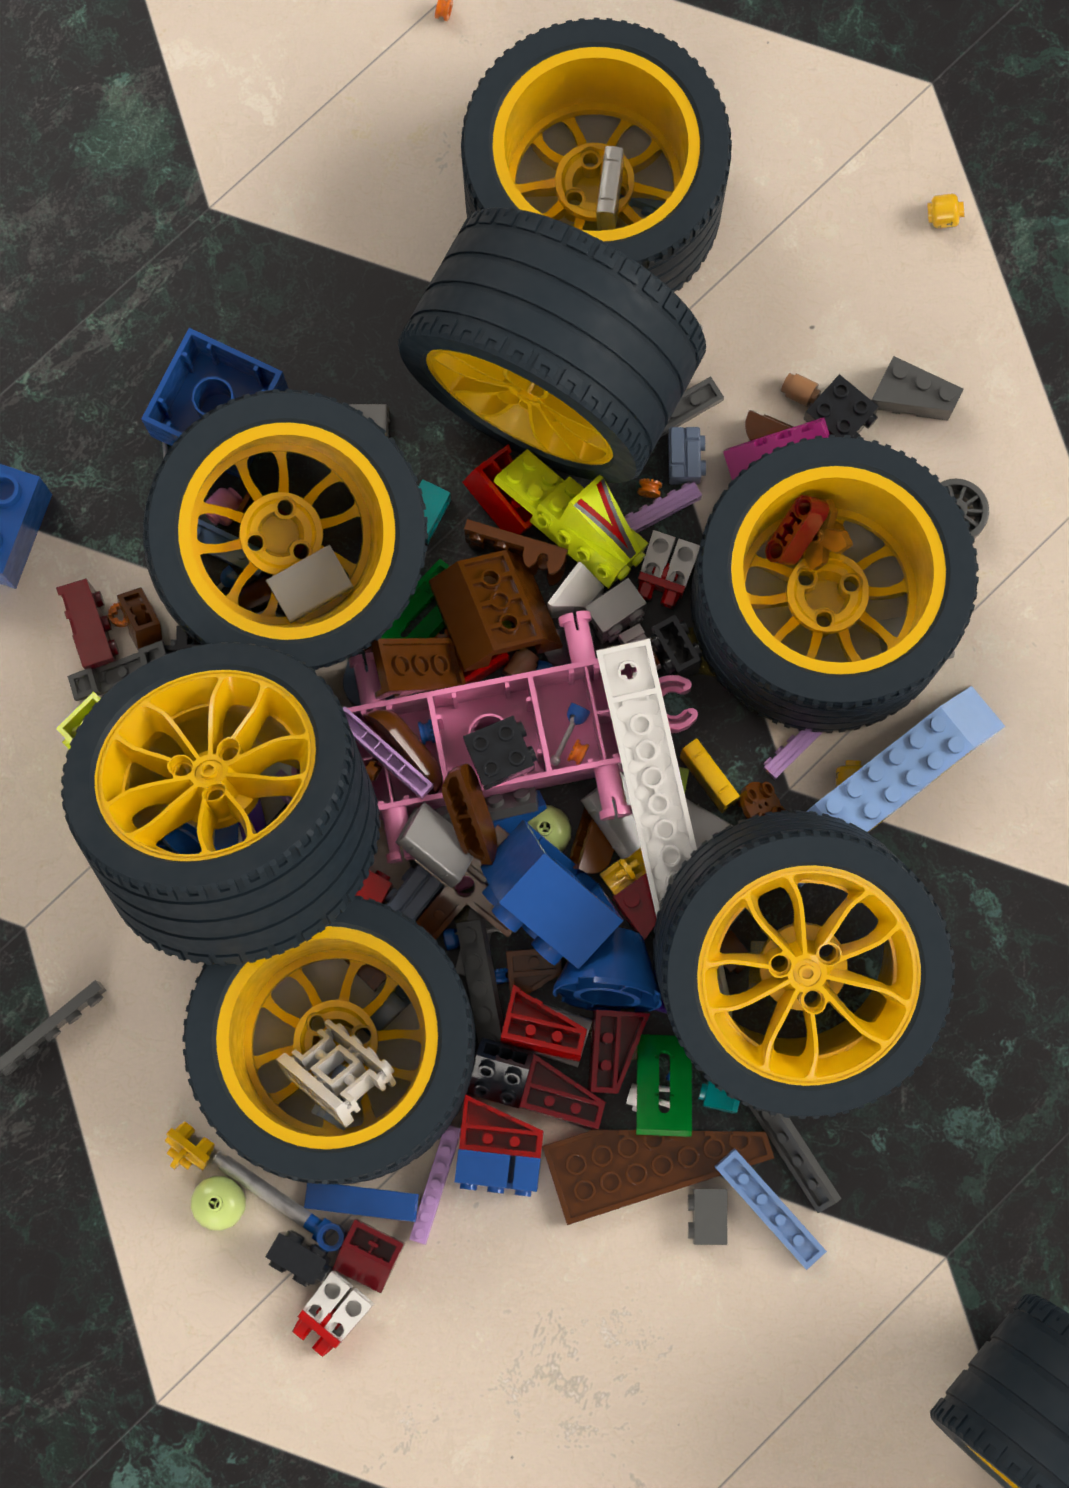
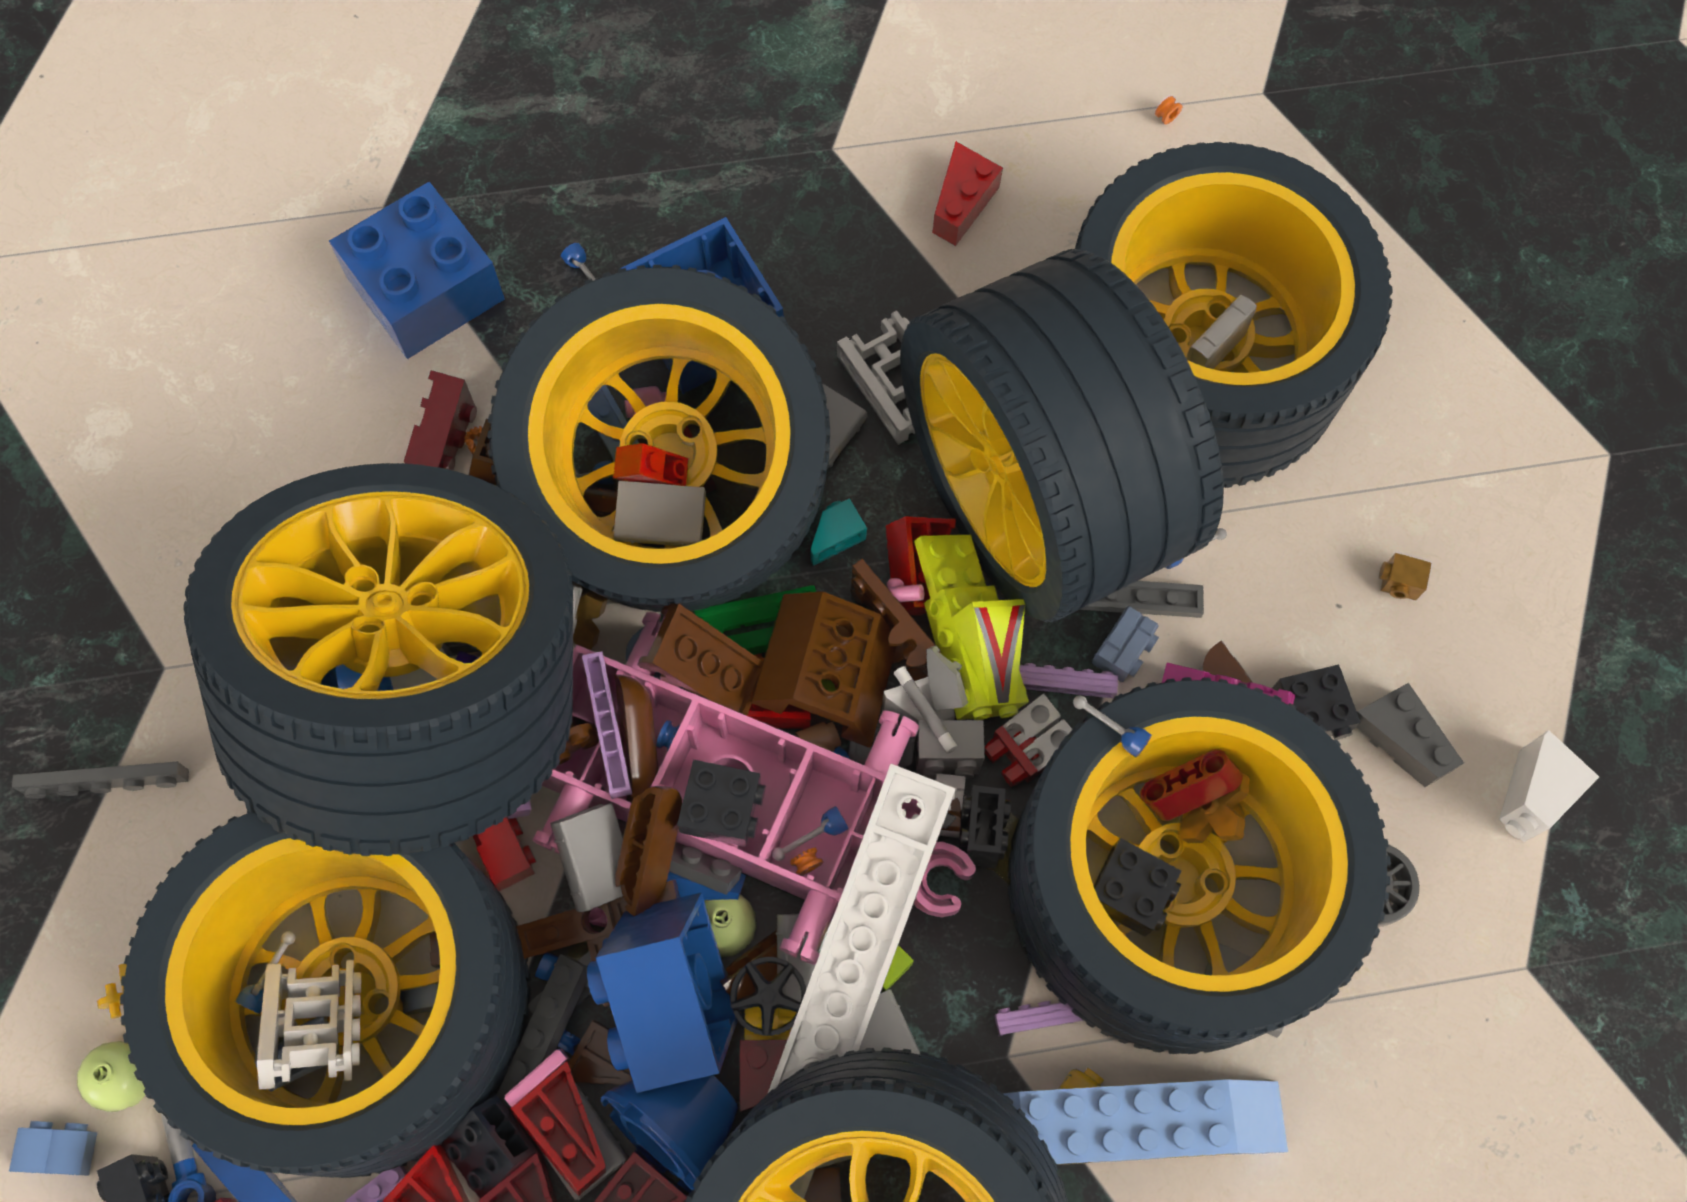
camera: 30 degrees right, 10 degrees down
(82, 427) = (575, 257): none -> blue hinge
(217, 1272) = (53, 1150): none -> medium blue brick
(280, 555) = (649, 465): none -> red slope
(280, 1085) = (252, 995): none -> hinge
(337, 178) = (965, 192): none -> red wedge
(375, 377) = (875, 383): none -> white fence
(415, 893) = (540, 896): sand blue brick -> none
(500, 1008) = (534, 1078): none -> bright pink tile
(513, 523) = (905, 593): none -> bright pink arm
(584, 596) = (925, 709): none -> light grey bar
(585, 568) = (945, 681): none -> light grey slope
(612, 855) = (767, 995): none -> black wheel
(649, 488) = (1068, 653): orange bush -> none
(709, 775) = (930, 982): yellow piece -> none
(744, 528) = (1133, 739): none -> hinge
(759, 799) = (967, 1045): reddish brown plate -> none
(800, 389) = (1287, 655): medium nougat brick -> none
(804, 622) = (1136, 887): none -> black brick
(844, 276) = (1404, 576): none -> pearl gold brick
(945, 211) = (1551, 579): yellow head -> none
(1025, 370) = (1543, 786): none -> white slope

